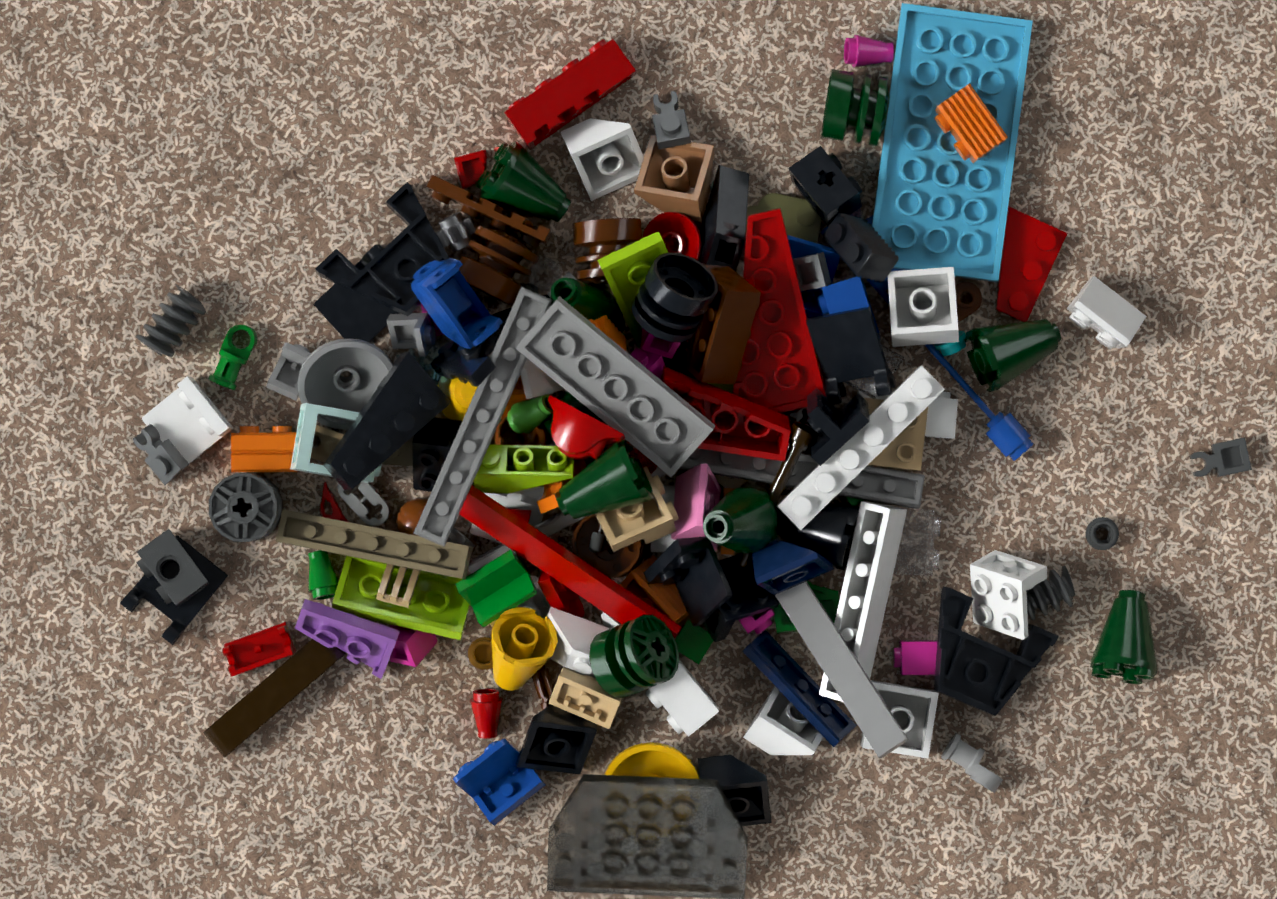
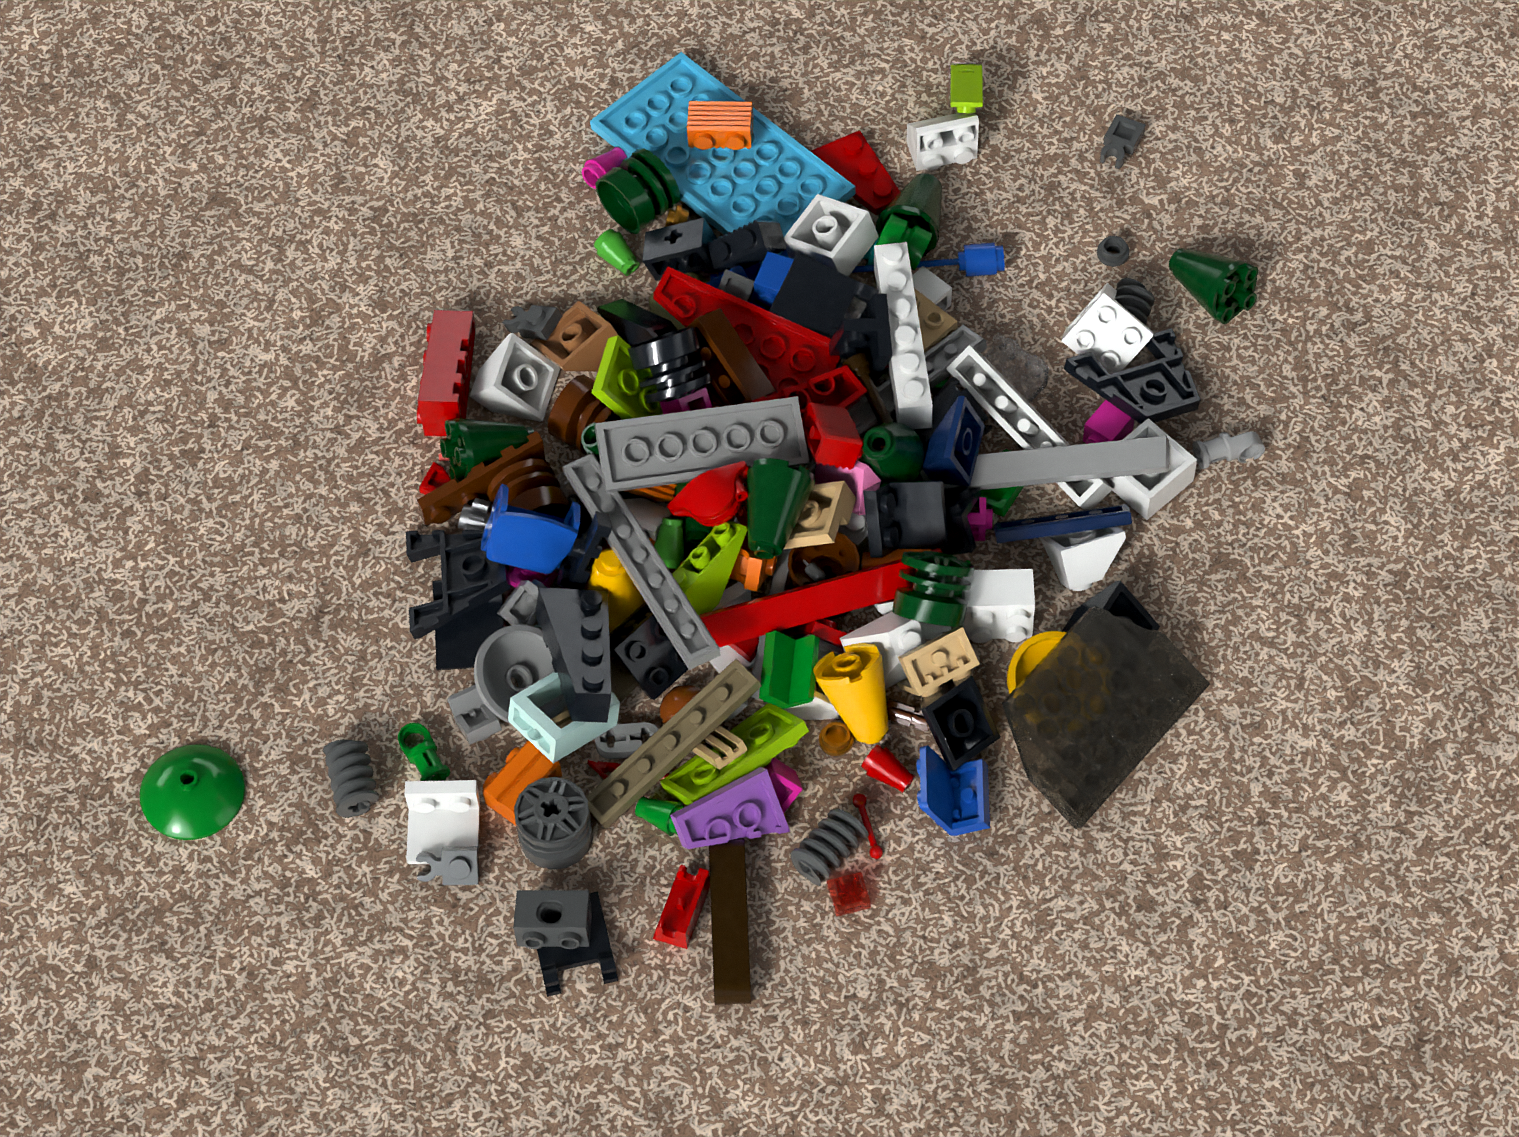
camera: 45 degrees left, 30 degrees down
(98, 212) = (193, 808): none -> green dish
(365, 759) = (848, 894): none -> clear red tile
(388, 720) = (826, 843): none -> dark grey piece
(415, 752) = (859, 802): none -> red hinge
(705, 478) = (832, 435): none -> red brick
(790, 132) = (615, 251): none -> bright green cone
(859, 155) = (676, 216): none -> pearl gold plate
(962, 364) = (898, 231): none -> green wheel
(1164, 301) = (966, 87): none -> lime slope

